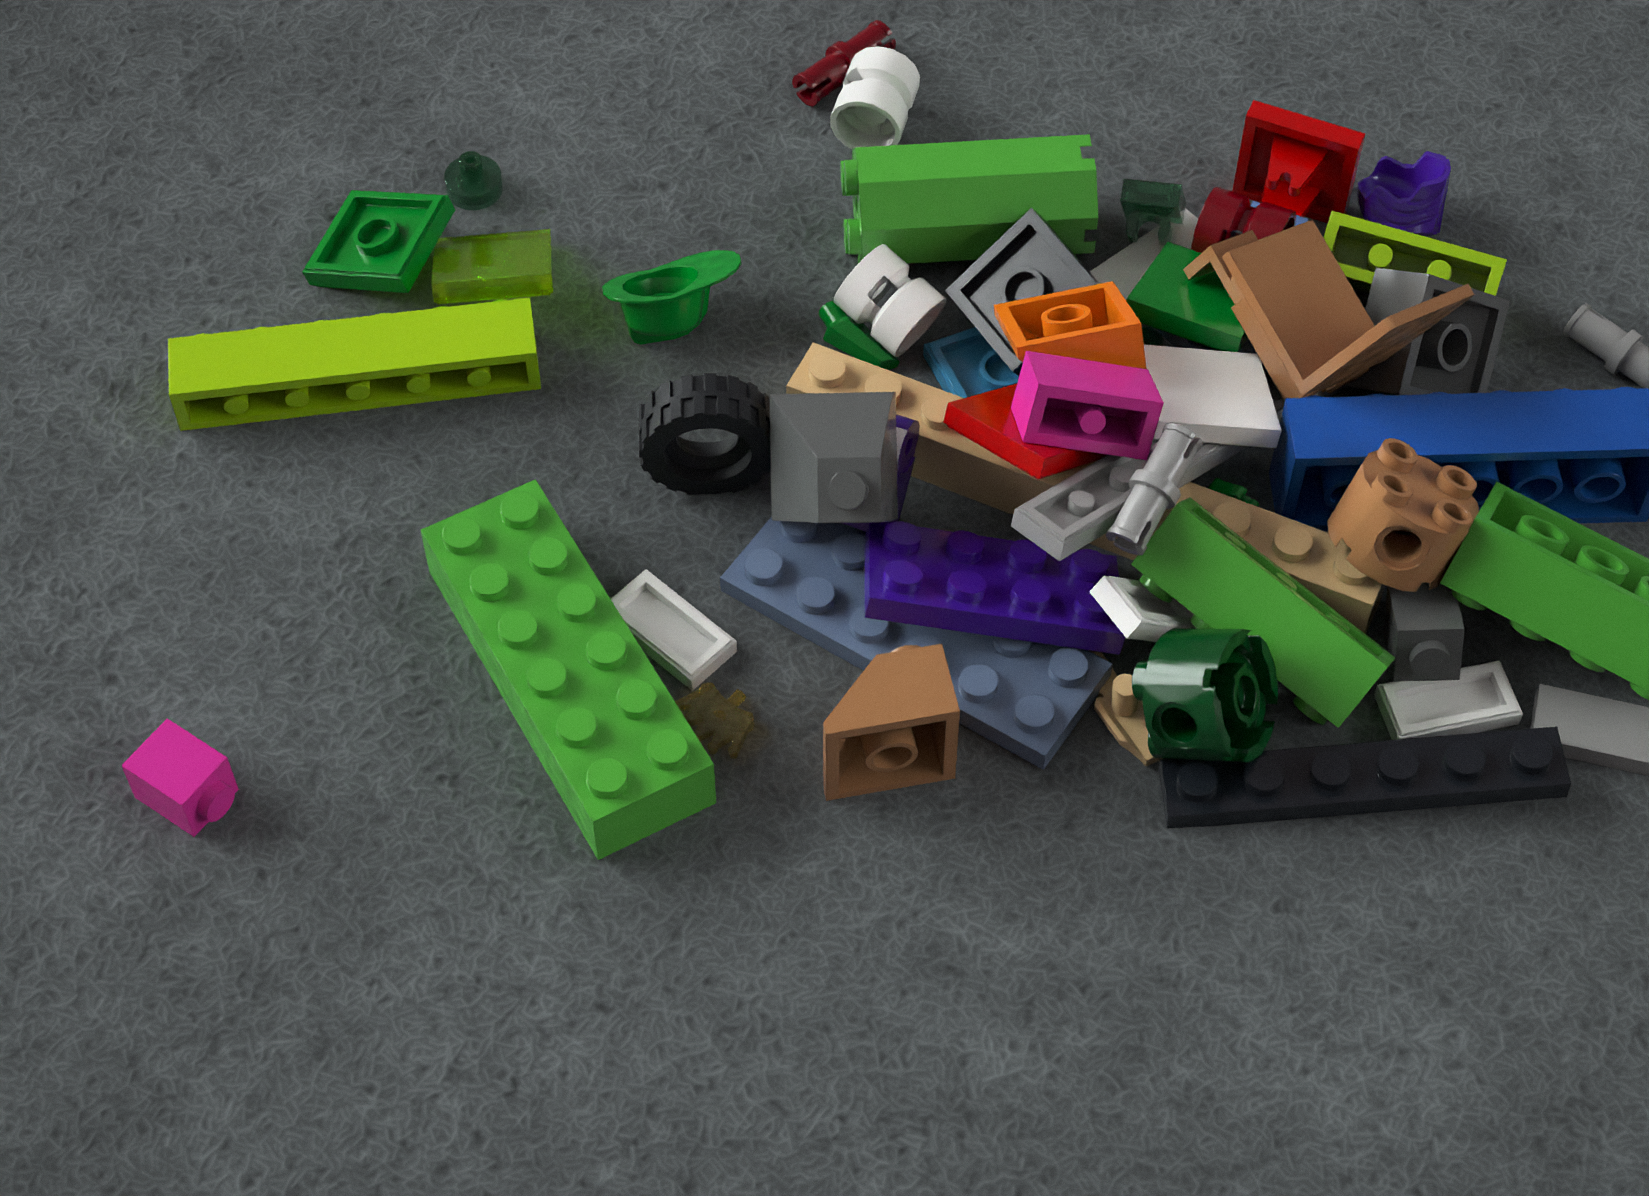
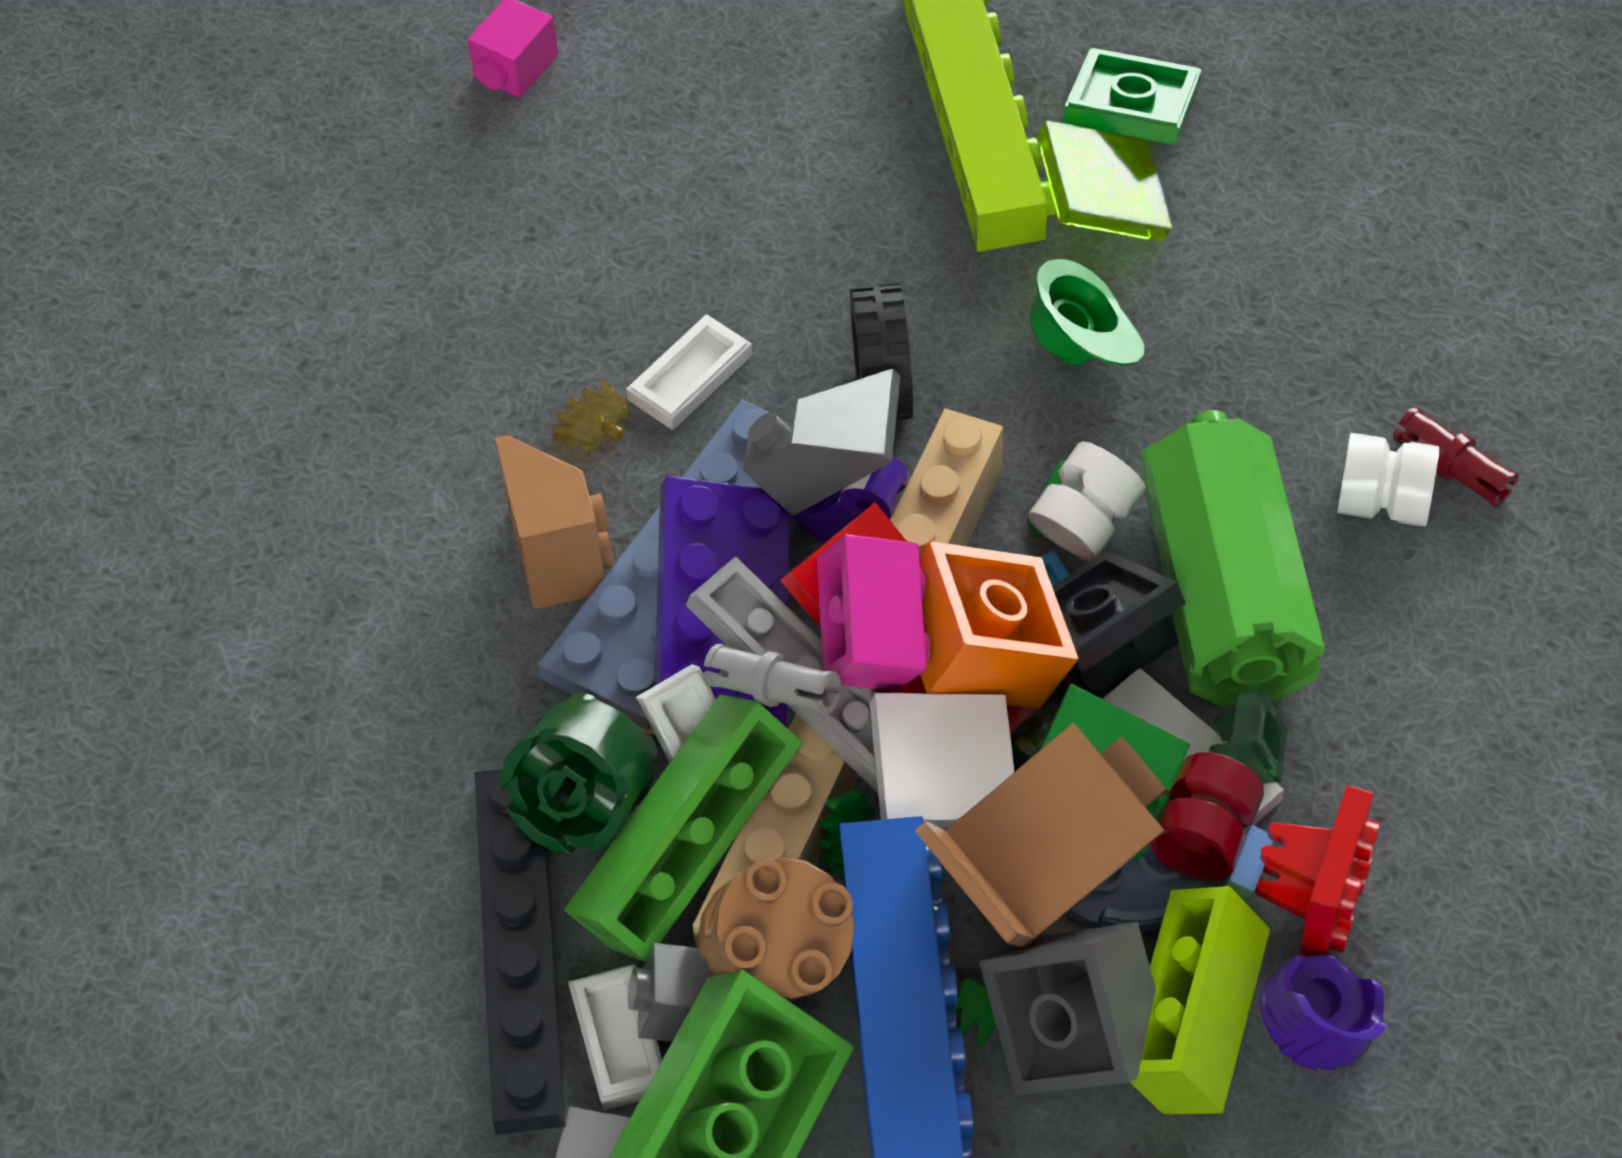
camera: 90 degrees right, 0 degrees up
(473, 181) = (1232, 164): clear green tile -> none
(569, 669) = (628, 287): bright green brick -> none

